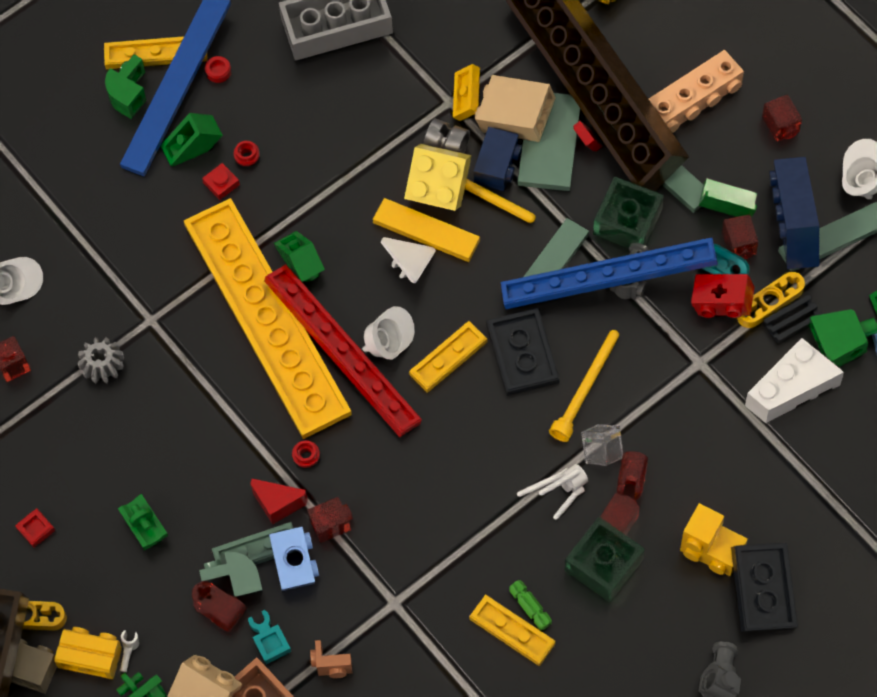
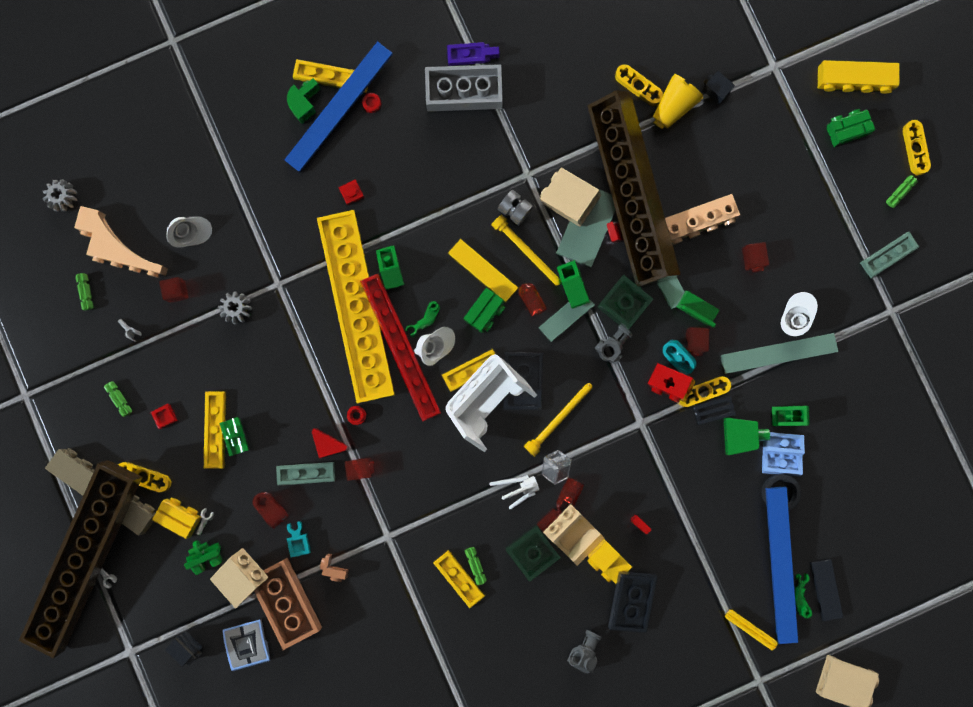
camera: 15 degrees right, 20 degrees up
(111, 527) = (213, 437): none -> yellow tile
(191, 138) = (338, 154): green slope -> none
(241, 569) = (287, 488): sand green brick -> none
(246, 147) = (374, 170): red plate -> none
(286, 542) = (326, 503): light blue brick -> none
(370, 308) = (429, 318): none -> green arm
(408, 256) = (464, 291): white piece -> none
(437, 177) = (500, 237): light yellow brick -> none
(443, 275) = (484, 310): none -> green brick
(466, 92) = (540, 172): yellow plate -> none
(476, 373) = (481, 395): none -> white windscreen
(496, 159) = (546, 231): dark blue brick -> none
(503, 245) = (532, 299): none -> clear red piece
(552, 208) = (573, 284): none -> green slope
(609, 273) = (598, 346): blue tile -> none
(651, 518) = (573, 534): none -> tan panel
(742, 486) = (640, 524): none -> red tile
(793, 380) = (699, 459): white wedge -> none
(796, 212) = (742, 334): dark blue wedge -> none

